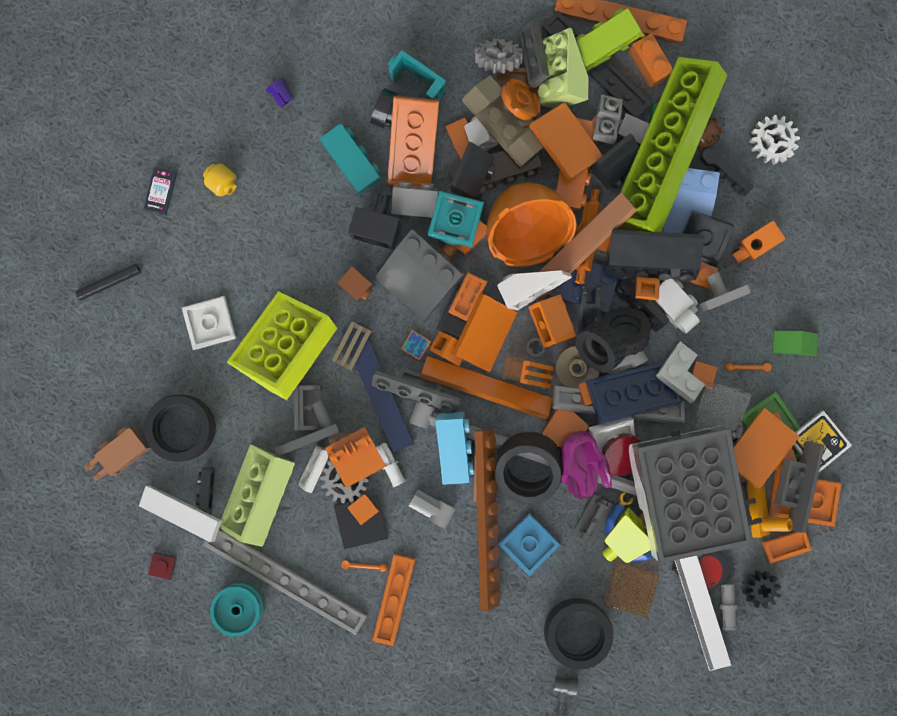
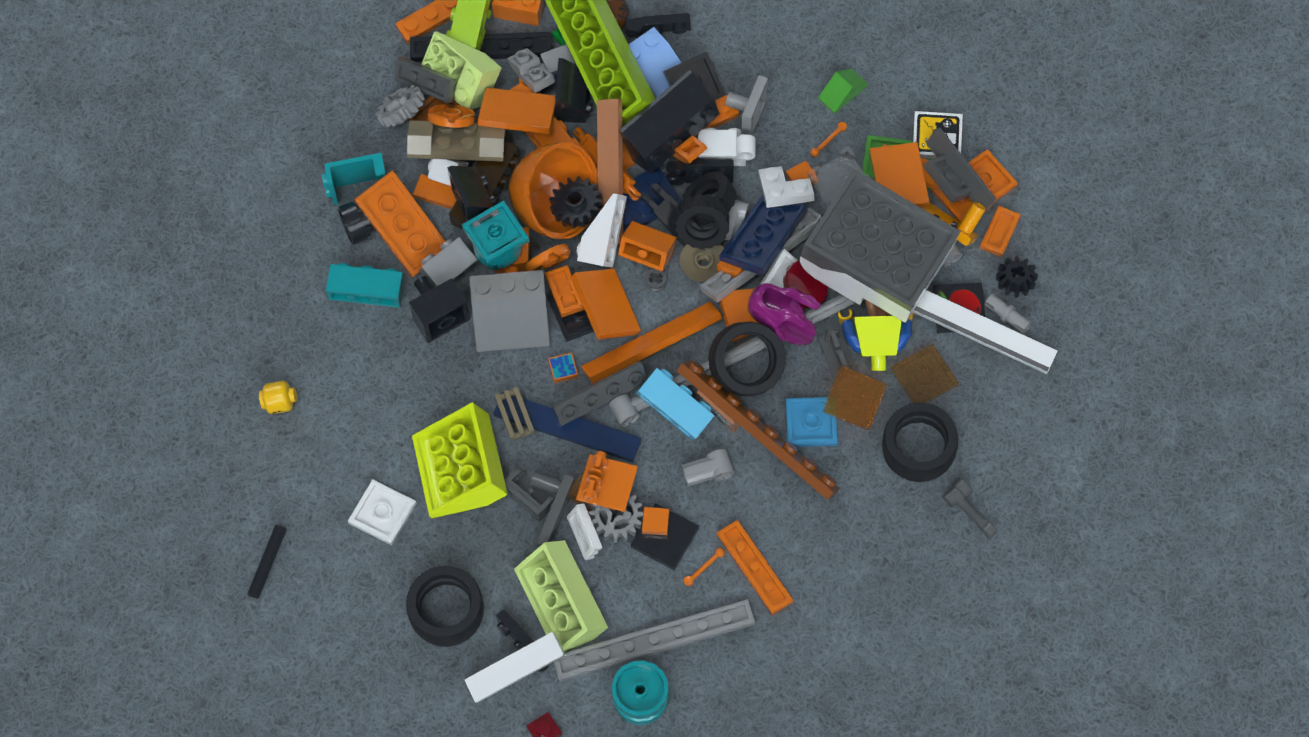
camera: 45 degrees left, 20 degrees down
(118, 453) = (416, 676): nougat hinge -> none
(160, 191) = (236, 455): tile -> none
(280, 92) = (257, 292): dark purple bush -> none
(356, 284) = (468, 368): dark orange brick -> none
(391, 465) = (646, 472): white axle -> none
(444, 347) = (587, 346): orange brick -> none
(479, 265) = (548, 258): none -> orange tile
(512, 368) = (657, 307): clear orange brick -> none
(538, 235) = (578, 214): none -> black gear
(546, 376) = (675, 288): orange tile -> none
(570, 561) = (854, 398): none -> clear orange tile
(766, 237) = (736, 45): orange torso -> none

